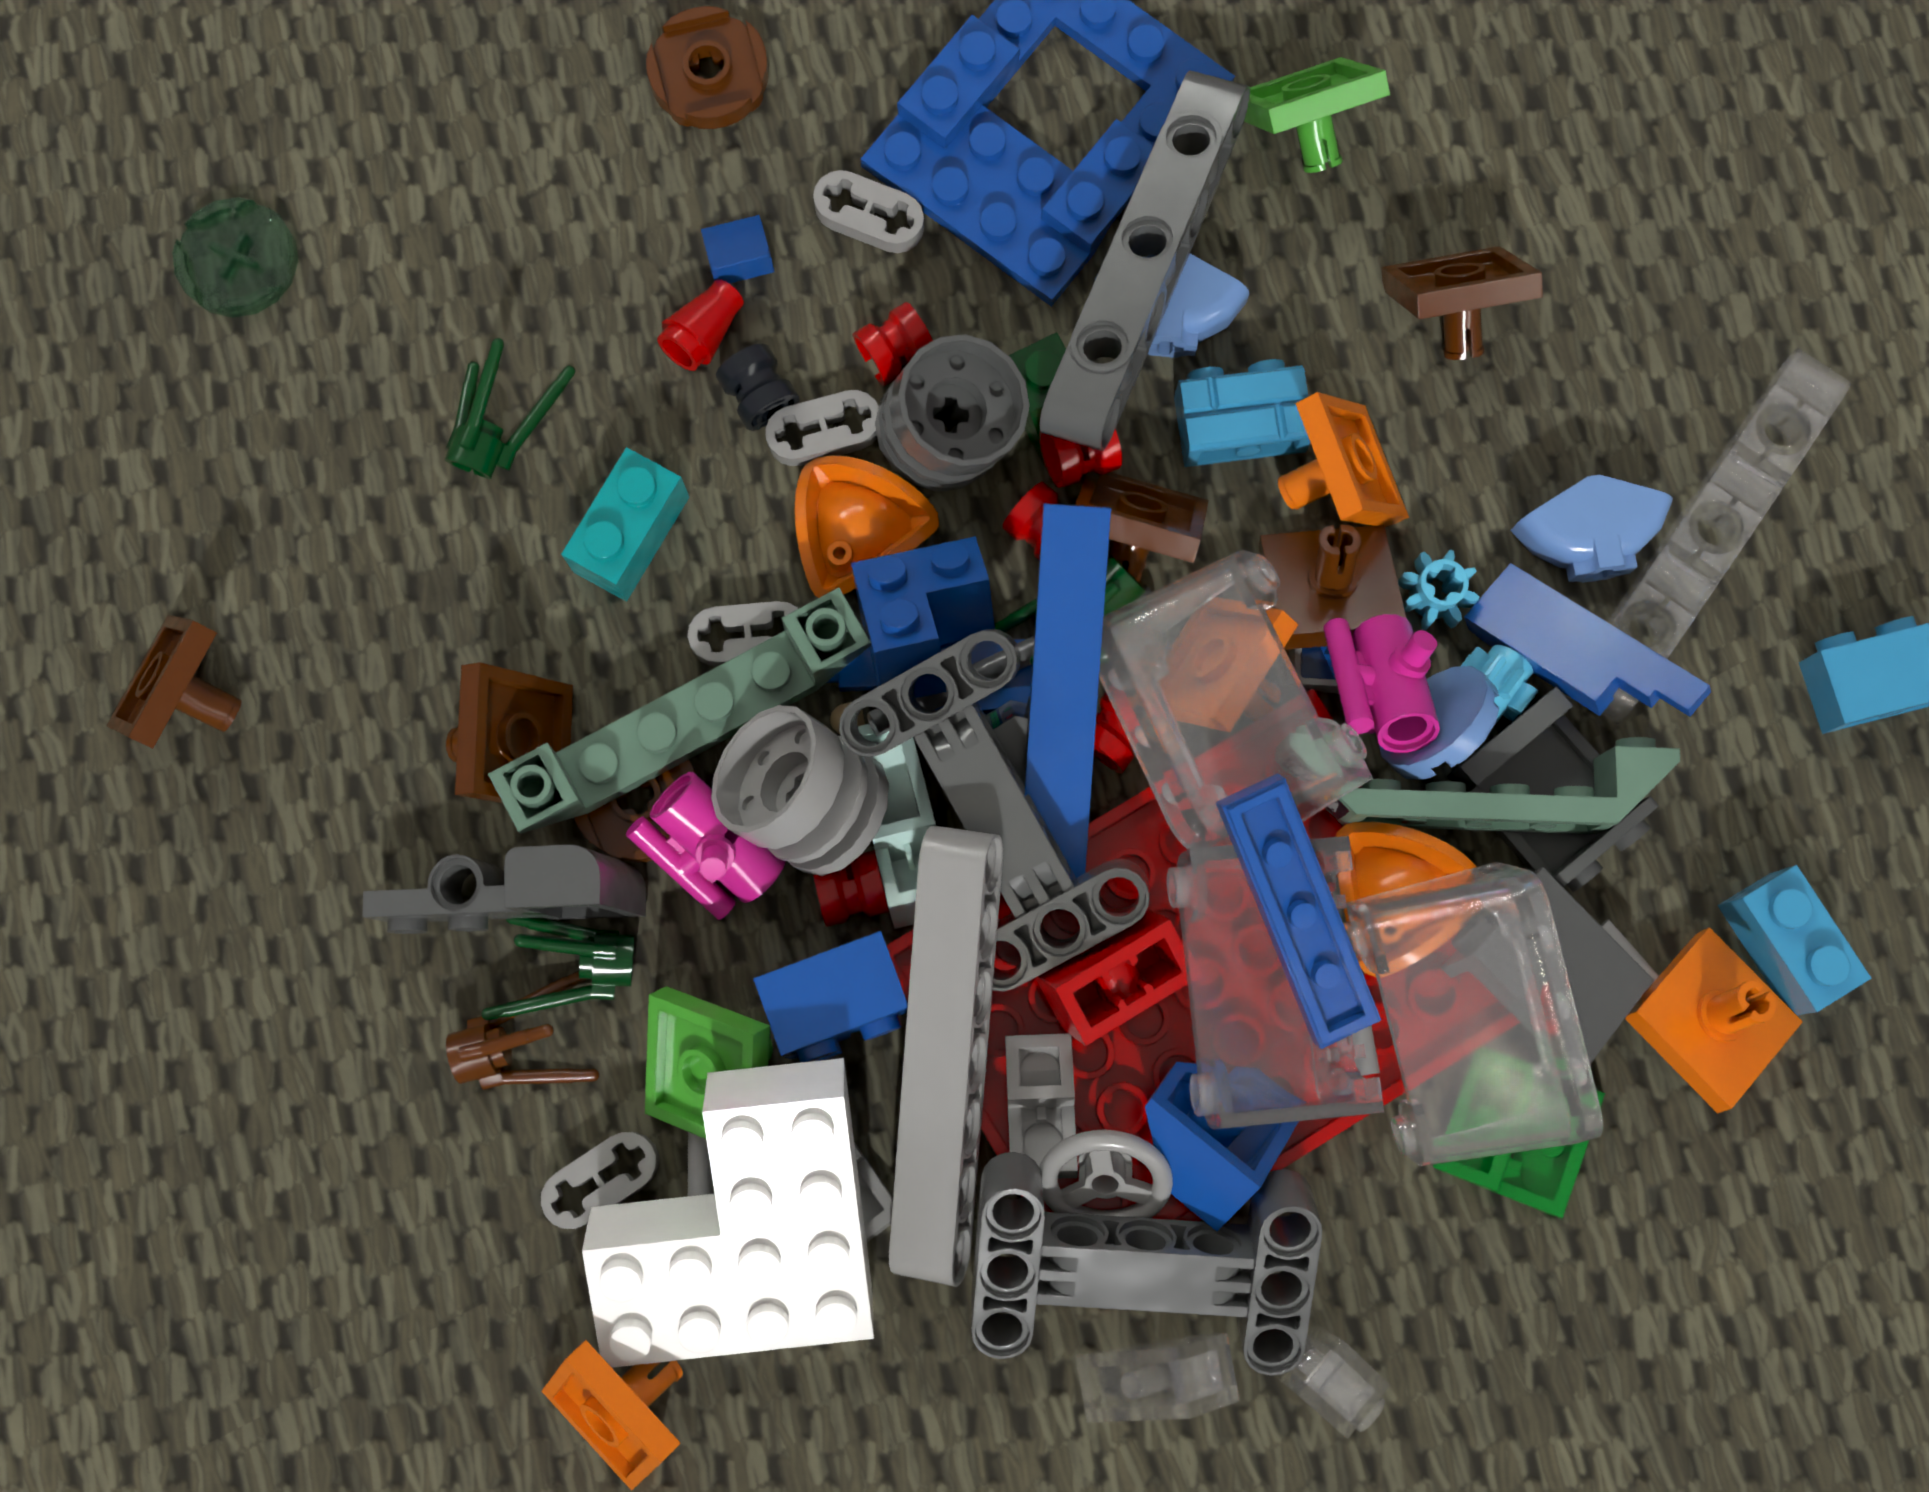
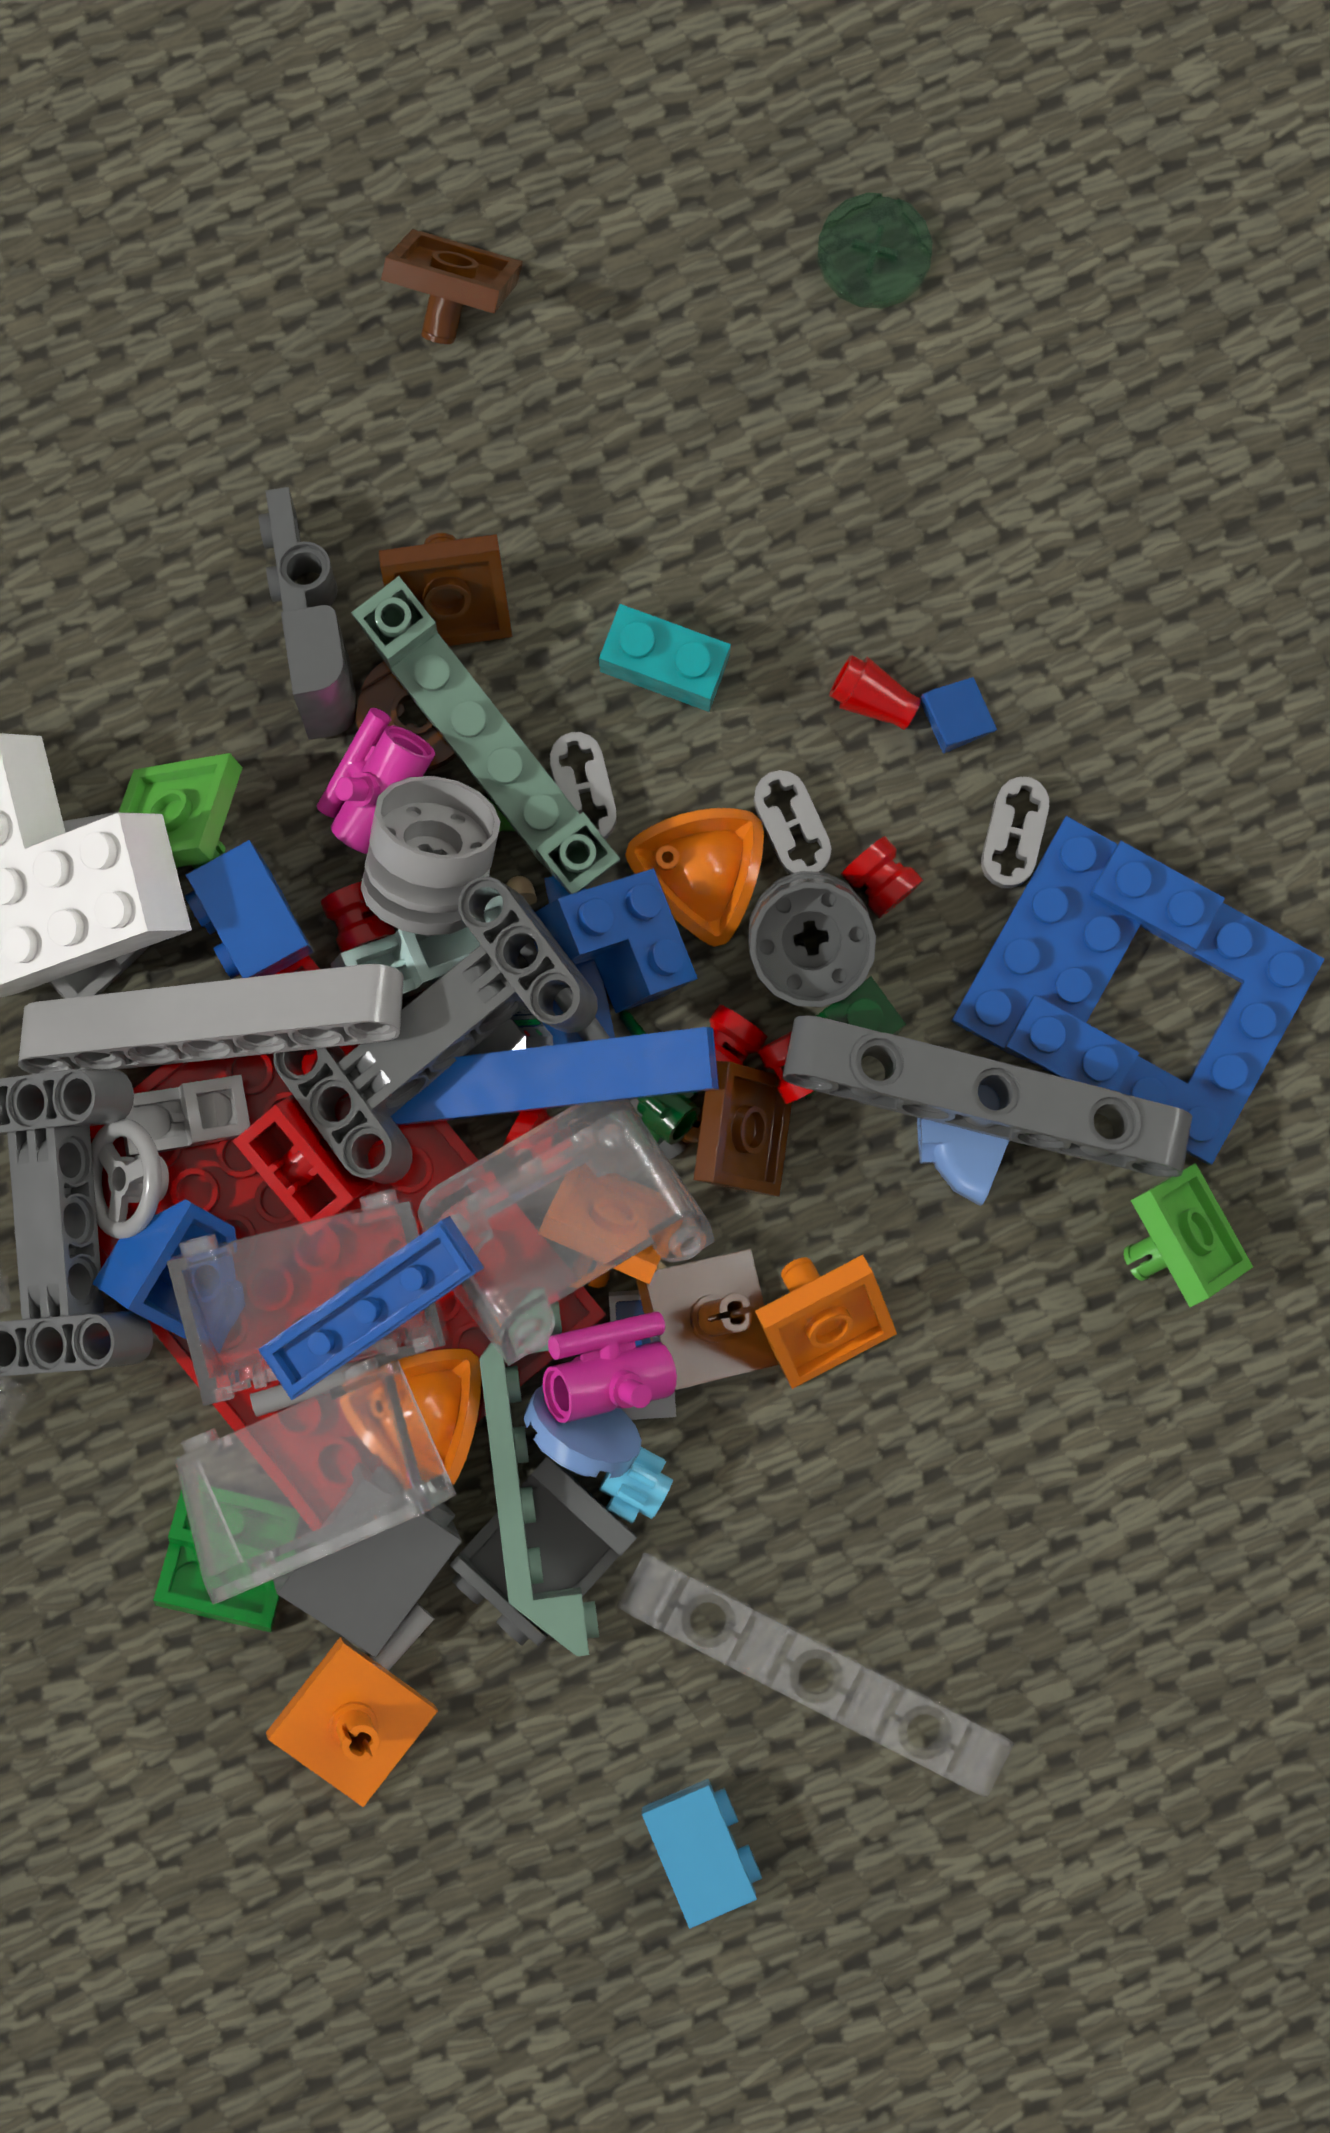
camera: 80 degrees right, 5 degrees up
(477, 442) = (726, 507): dark green plant -> none
(484, 1050) = (168, 619): reddish brown plant -> none
(591, 1167) = (81, 732): light grey beam -> none
(603, 958) = (262, 710): dark green plant -> none
(716, 100) = (1146, 624): reddish brown plate -> none
(756, 385) = (816, 758): black wheel -> none
(1241, 413) = (864, 1211): dark azure brick -> none
(1422, 593) = (730, 1436): medium azure gear -> none
(1459, 289) = (1018, 1406): reddish brown tile -> none
(1577, 648) = (677, 1550): piece -> none
(1594, 527) = (803, 1564): medium blue piece -> none
(1794, 941) = (432, 1788): dark azure piece -> none

